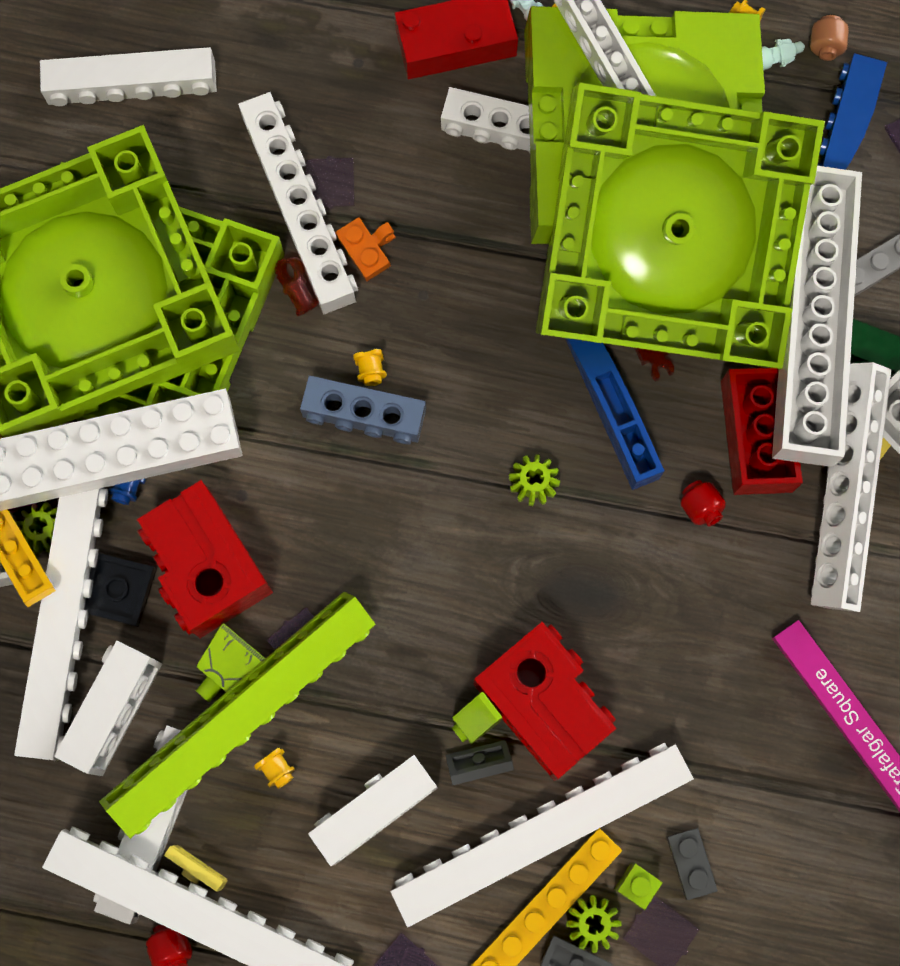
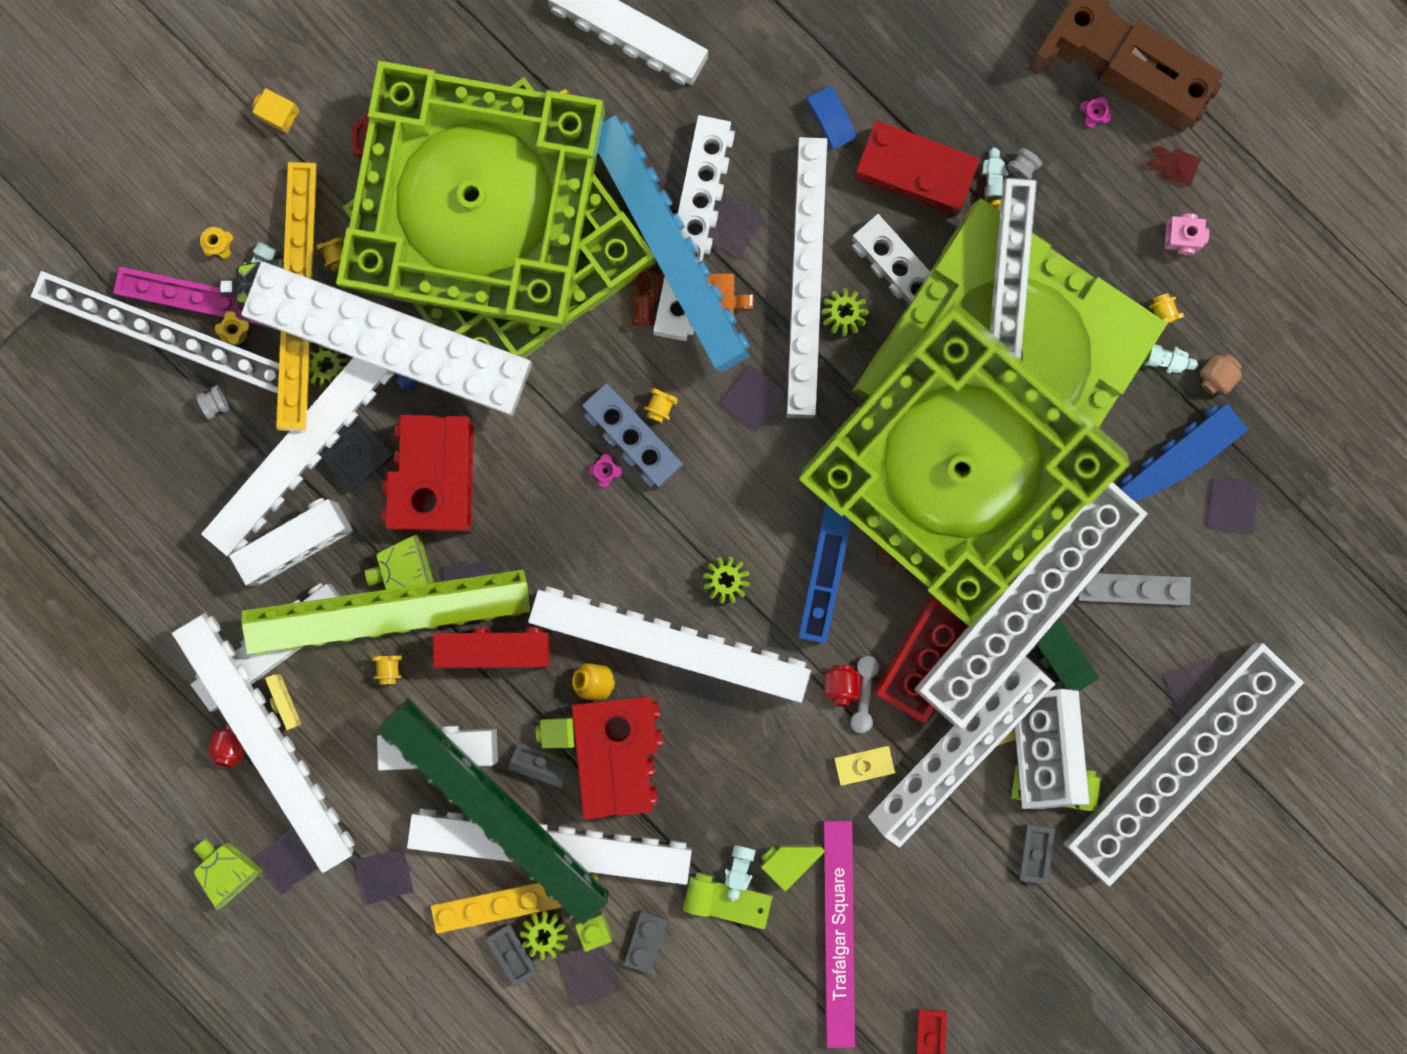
camera: 30 degrees right, 10 degrees up
(291, 222) = (670, 246): none -> dark azure brick
(354, 449) = (597, 470): none -> dark pink plate
(355, 38) = (832, 117): none -> blue slope
(364, 680) = (492, 649): none -> red brick
(426, 181) = (806, 278): none -> white brick
(448, 311) = (753, 398): none -> clear purple piece
(468, 830) = (493, 811): none -> dark green brick
(477, 177) = (841, 303): none -> lime gear
(477, 650) = (593, 682): none -> yellow head
(526, 567) = (668, 645): none -> white brick
(734, 742) = (738, 877): none -> light aqua piece
(739, 772) = (711, 899): none -> lime door
(742, 523) = (861, 720): none -> light grey bar
(771, 696) = (789, 862): none -> lime slope
(772, 563) = (864, 765): none -> light yellow plate

